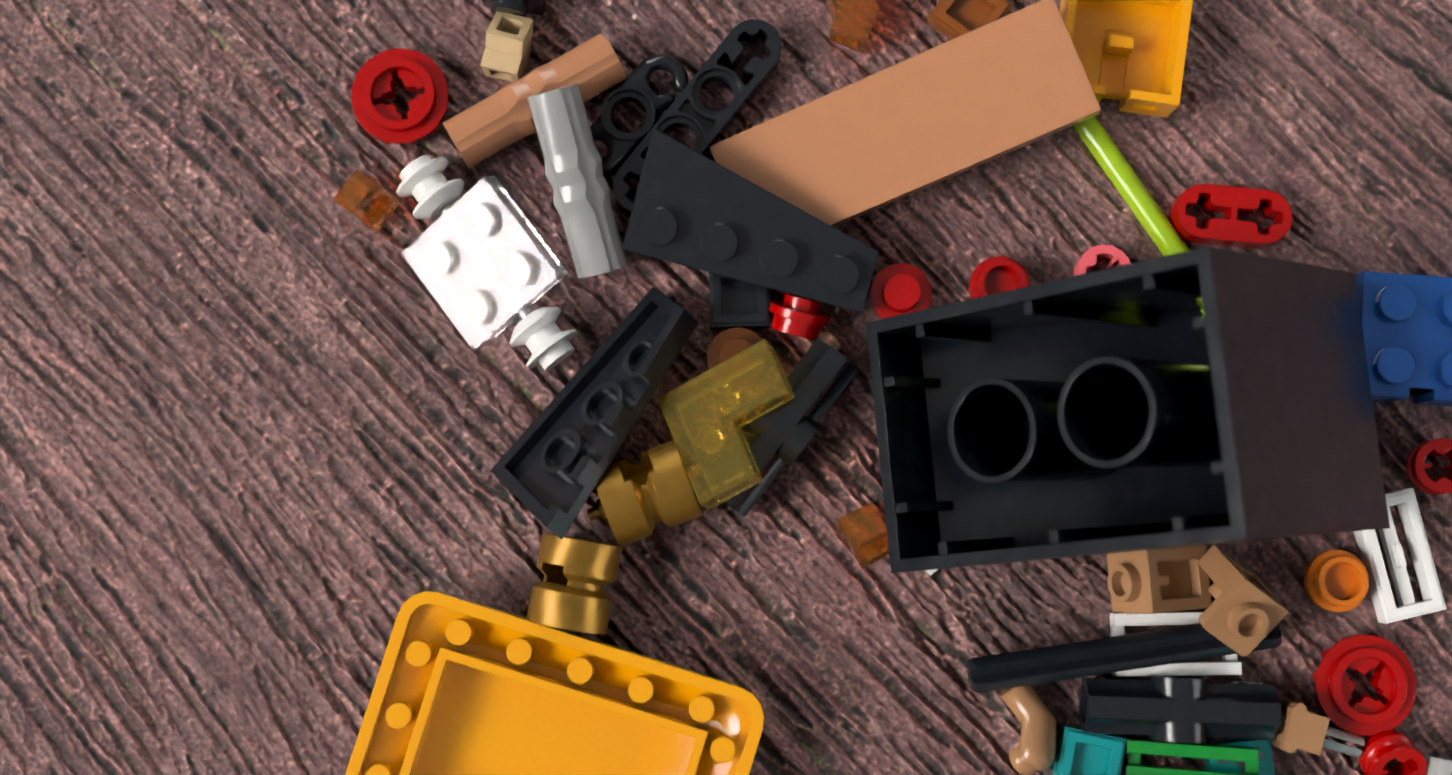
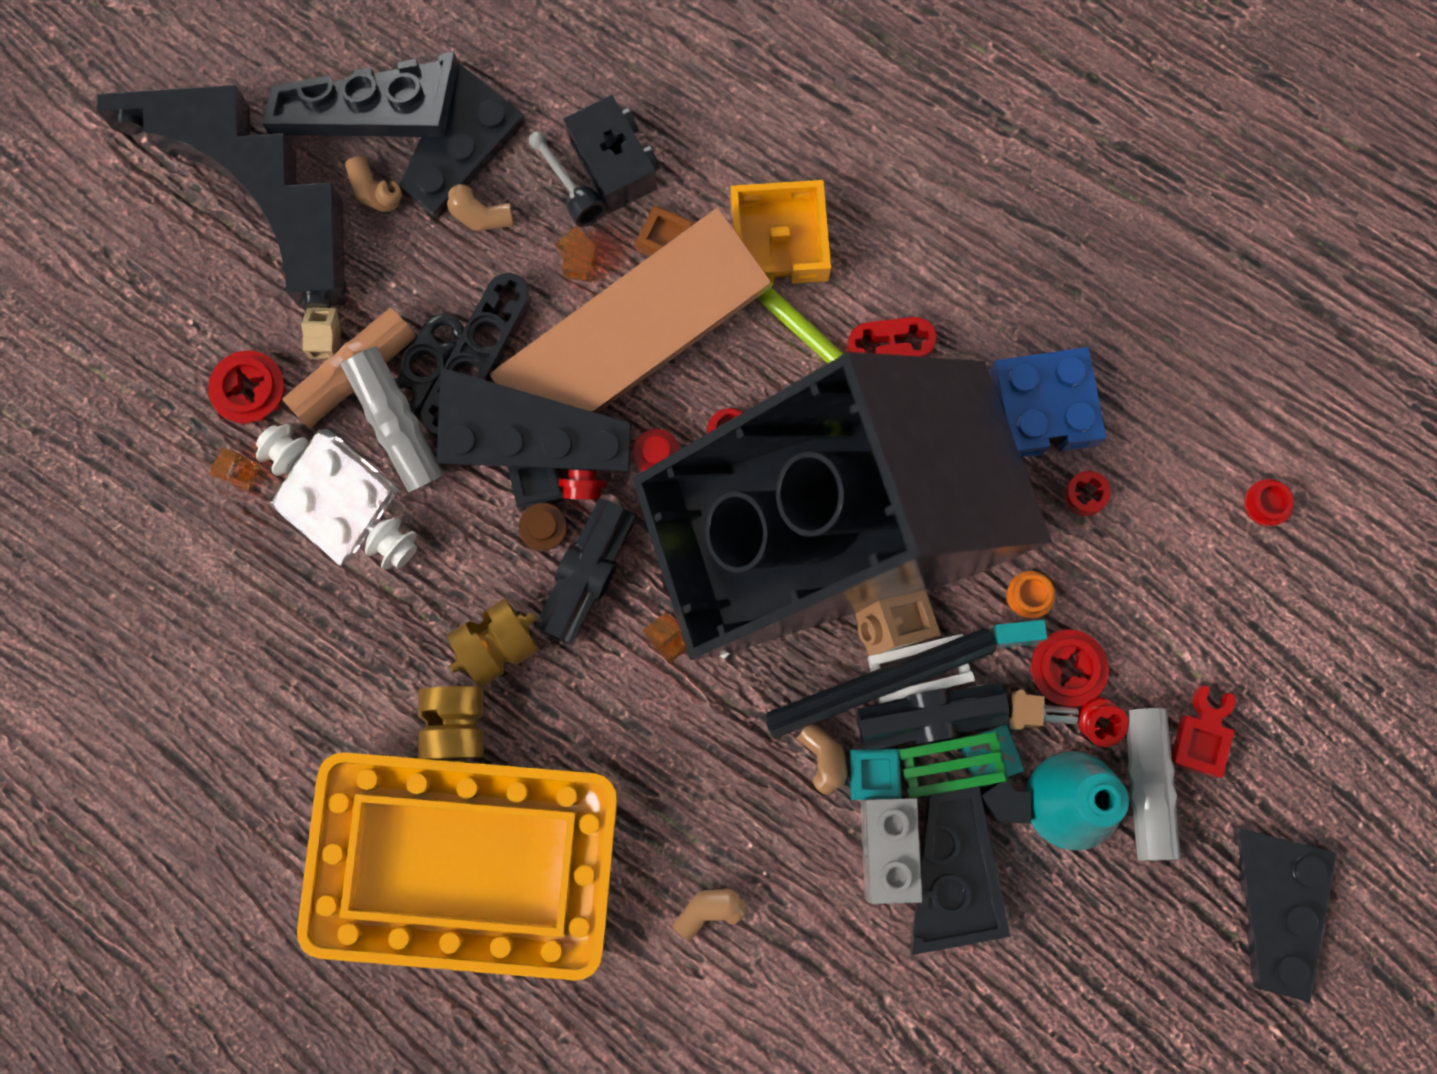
camera: 15 degrees left, 5 degrees down
(585, 425) = (434, 603): black wing -> none
(709, 416) = (528, 569): clear yellow tile -> none
(1242, 604) = (958, 626): medium nougat bracket -> none
(1316, 630) = (1019, 634): none -> teal tile
(1421, 557) = (1089, 561): white tile -> none

